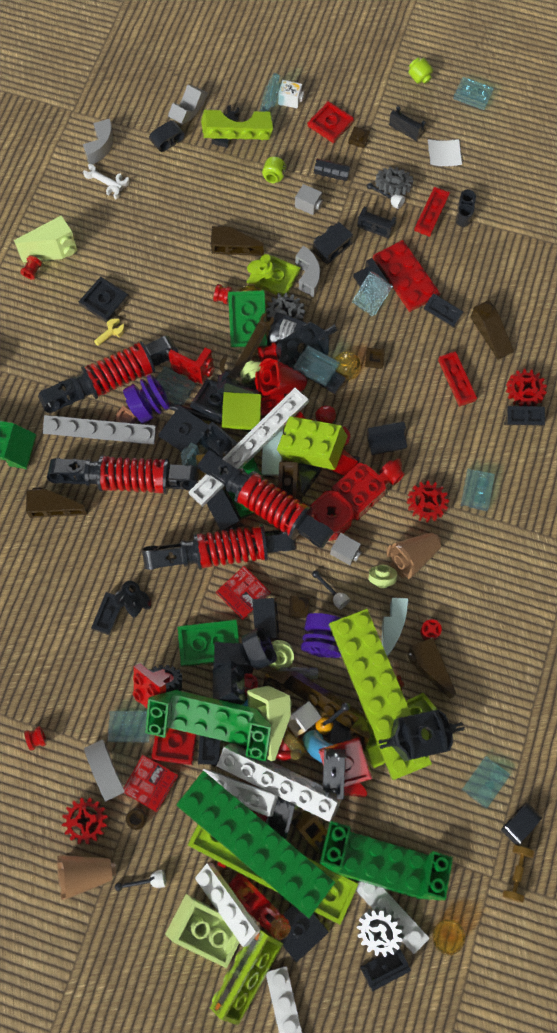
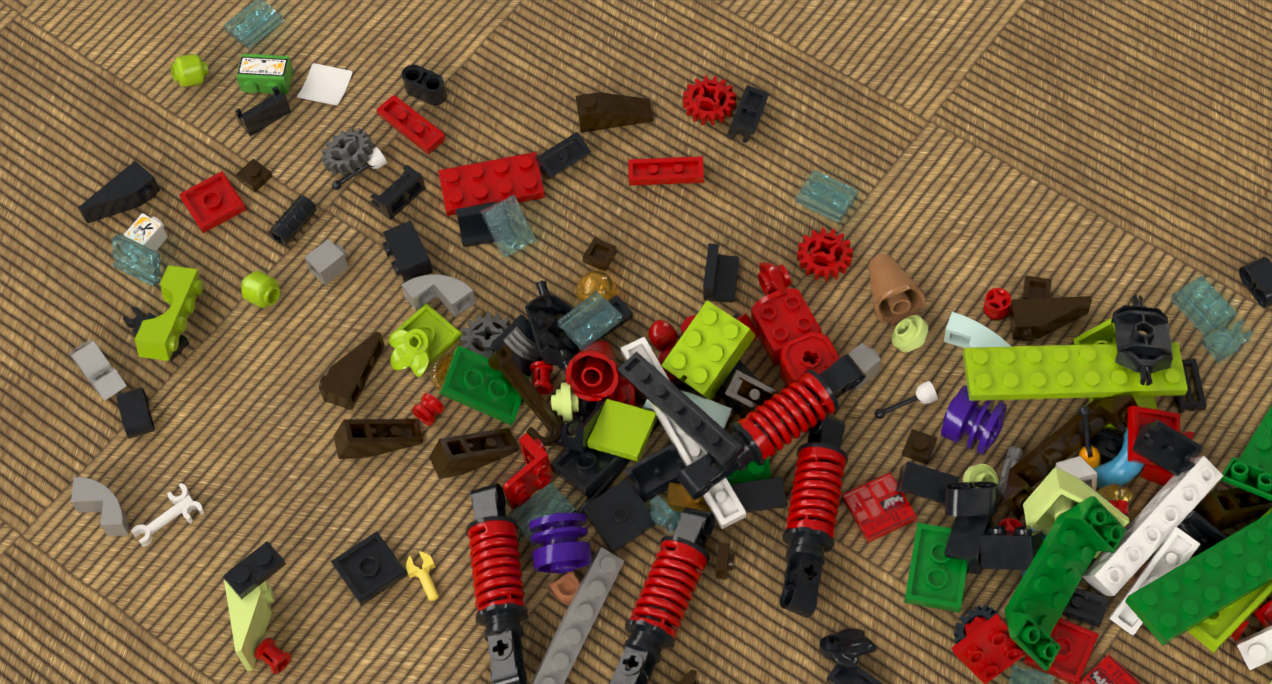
camera: 65 degrees left, 10 degrees down
(67, 230) = (254, 570): none -> black plate
(170, 504) = (725, 561): none -> dark brown plate
(193, 272) = (375, 436): none -> dark brown slope
(201, 329) = (471, 451): none -> dark brown slope
(254, 436) = (681, 410): none -> black tile
(316, 70) = (124, 192): none -> black slope
(397, 791) = (1190, 404): none -> black tile
(435, 113) = (264, 72): none -> brick
(452, 655) = (1036, 287): none -> dark brown plate
(459, 804) = (1224, 342): none -> clear light blue plate

